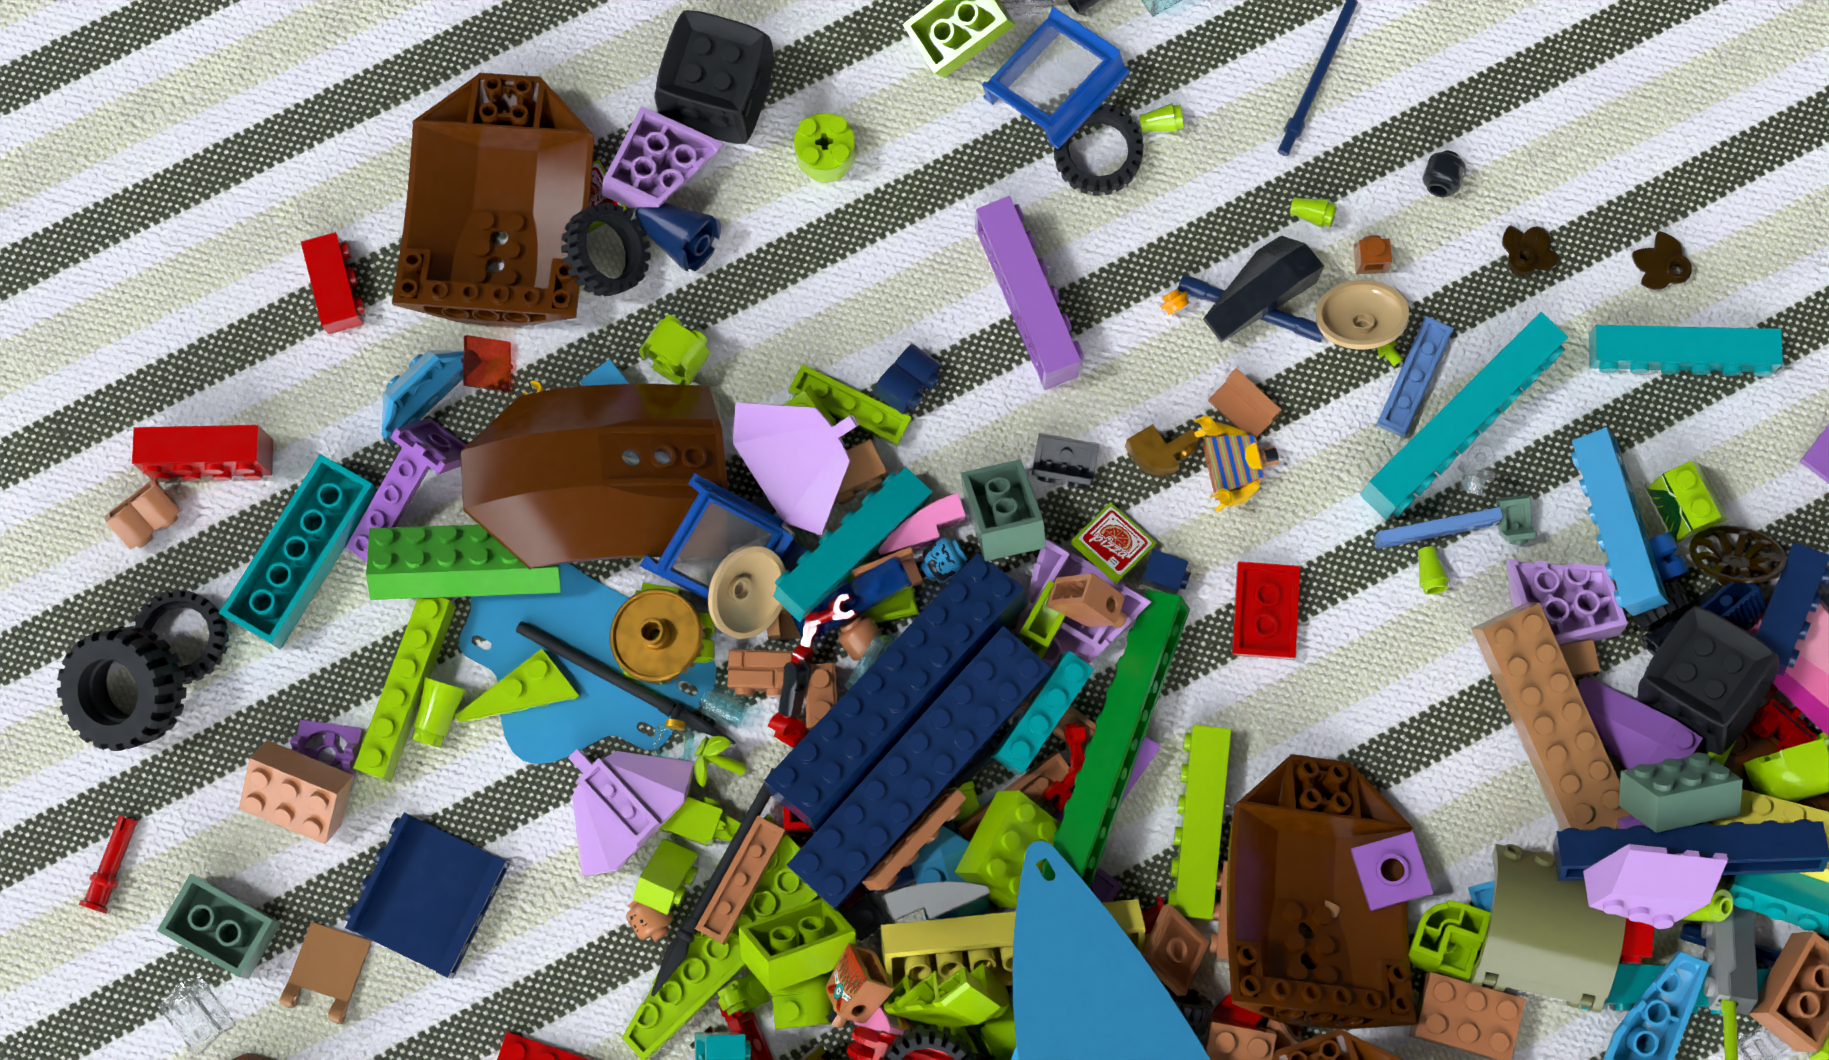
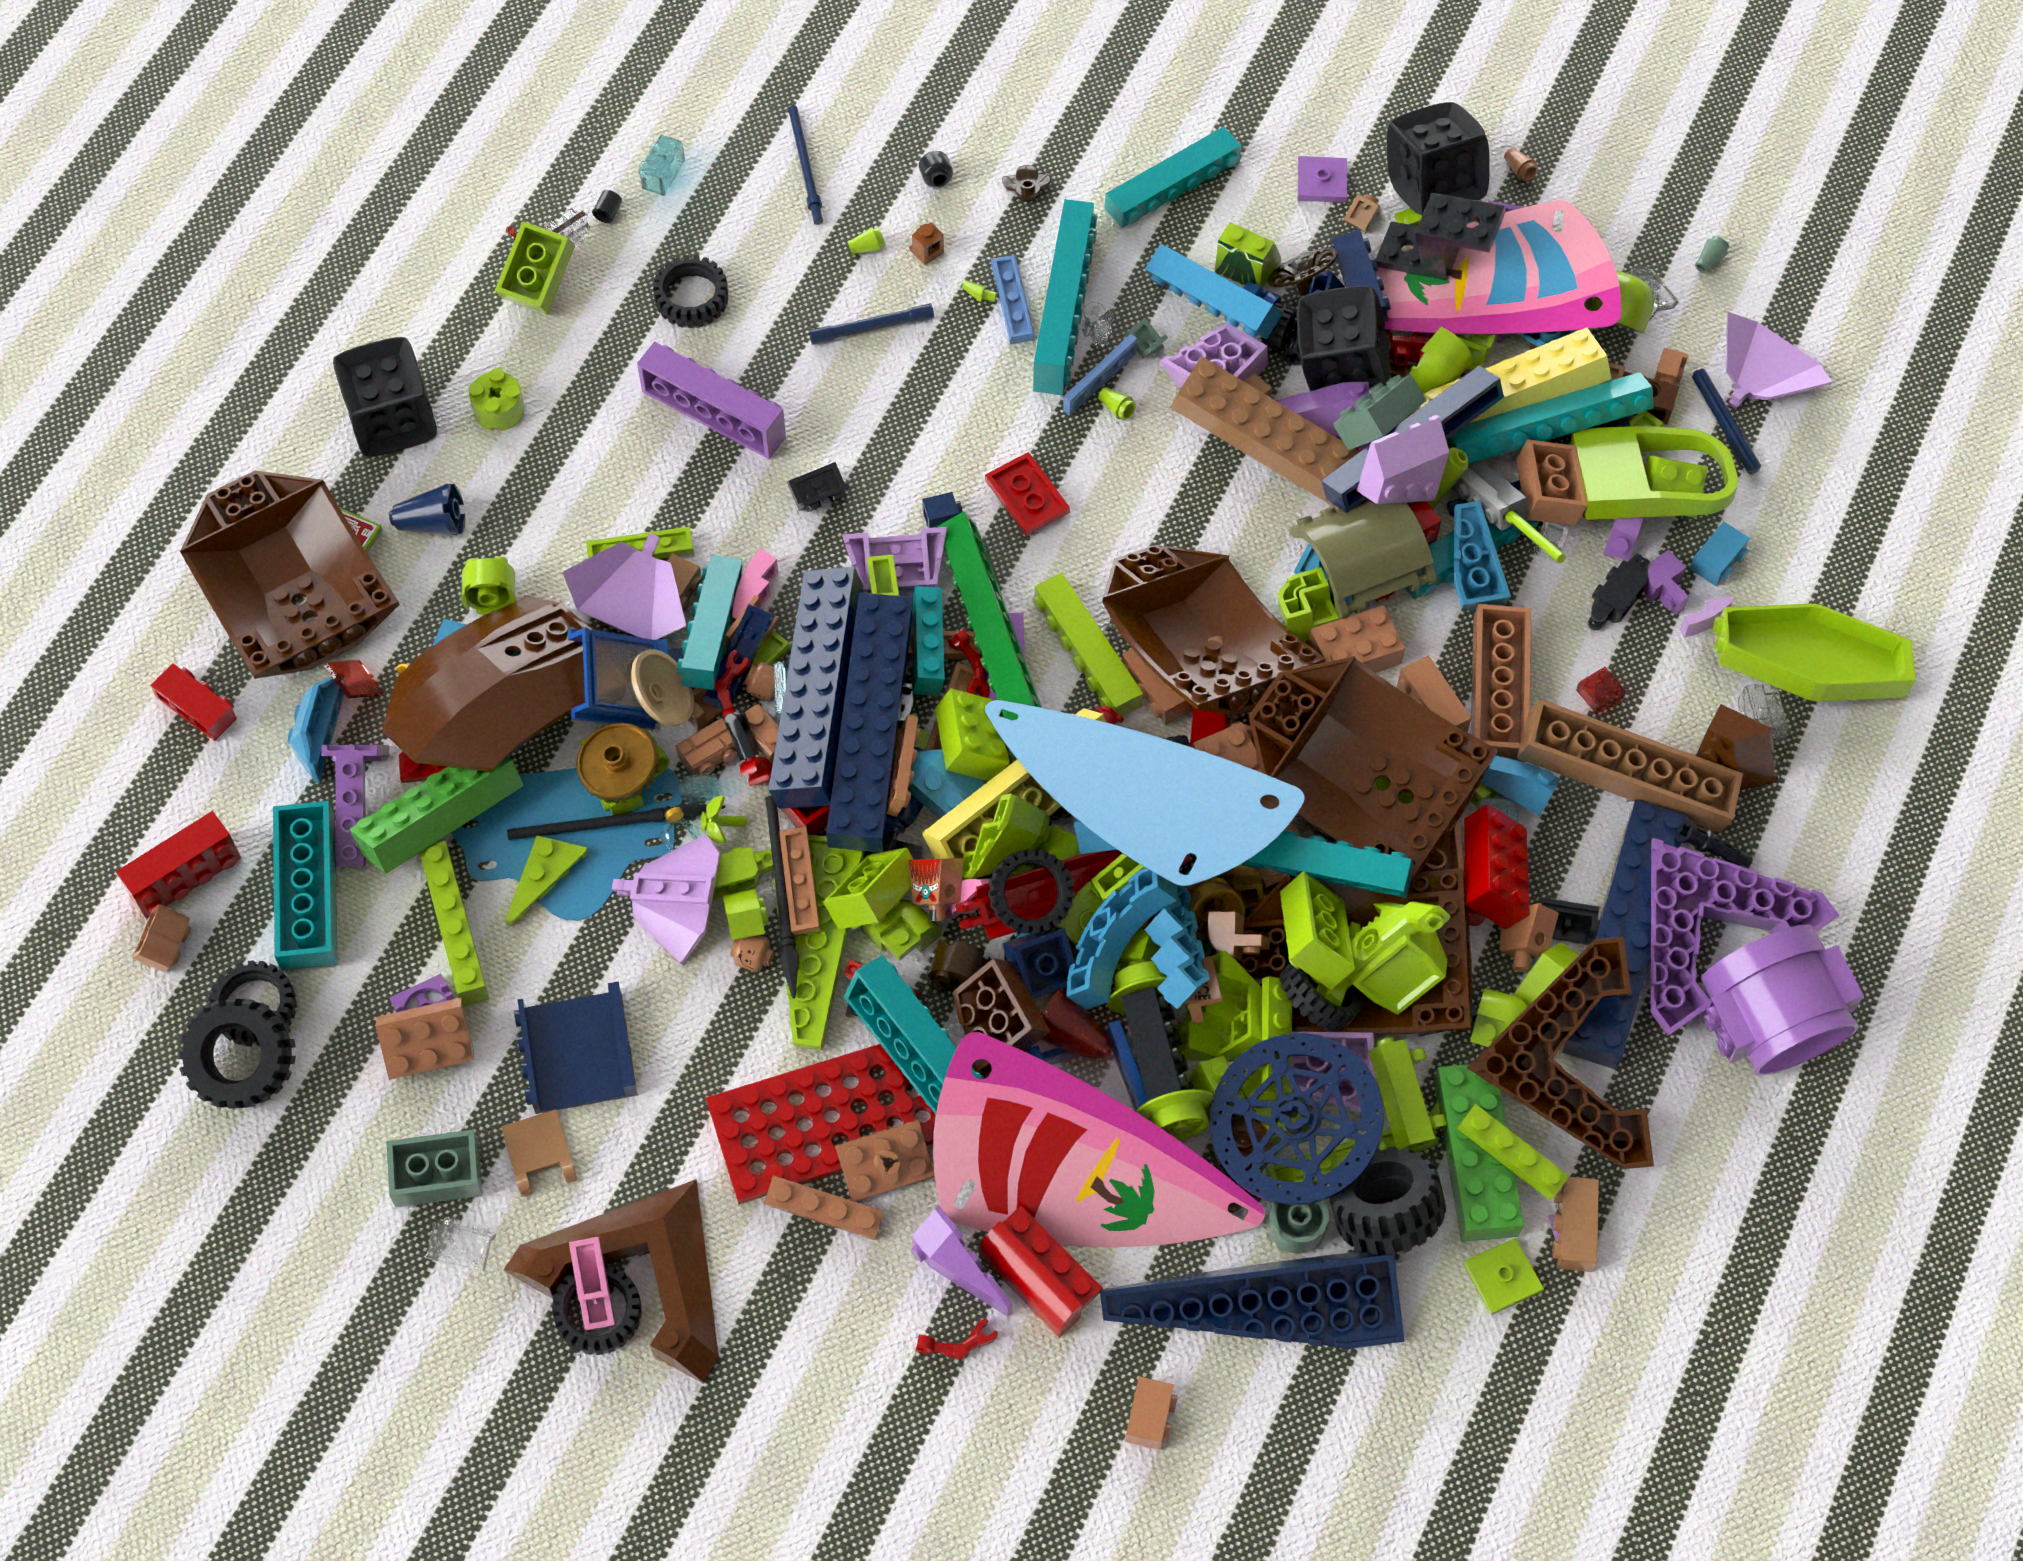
camera: 40 degrees left, 15 degrees down
(104, 879) = (317, 1202): red pin -> none
(436, 712) = (489, 923): lime plant -> none
(632, 242) = (381, 564): black tyre -> none
(655, 160) = (381, 476): lavender wedge -> none
(743, 995) = (858, 954): lime plate -> none
(907, 379) = (669, 504): dark blue brick -> none
(934, 897) = (945, 788): light grey slope -> none
(943, 559) = (783, 598): dark azure head -> none
(1003, 510) = (801, 535): sand green brick -> none
(1058, 76) = (628, 257): piece -> none
(1088, 601) = (904, 546): nougat torso -> none
(1113, 543) = (891, 516): tile -> none
(1156, 456) = (878, 447): pearl gold brick -> none
(1163, 119) = (722, 247): lime cone -> none
(1174, 301) = (816, 349): light orange plate -> none
(1174, 950) = (1130, 716): nougat tile -> none
(1233, 462) = (932, 417): torso -> none
(1244, 404) = (914, 381): nougat panel -> none
(1265, 283) = (870, 300): black wedge -> none
(1362, 314) = (949, 279): tan dish -> none
(1384, 893) = (1240, 603): medium lavender piece -> none
(1657, 263) = (1119, 139): dark brown plate -> none

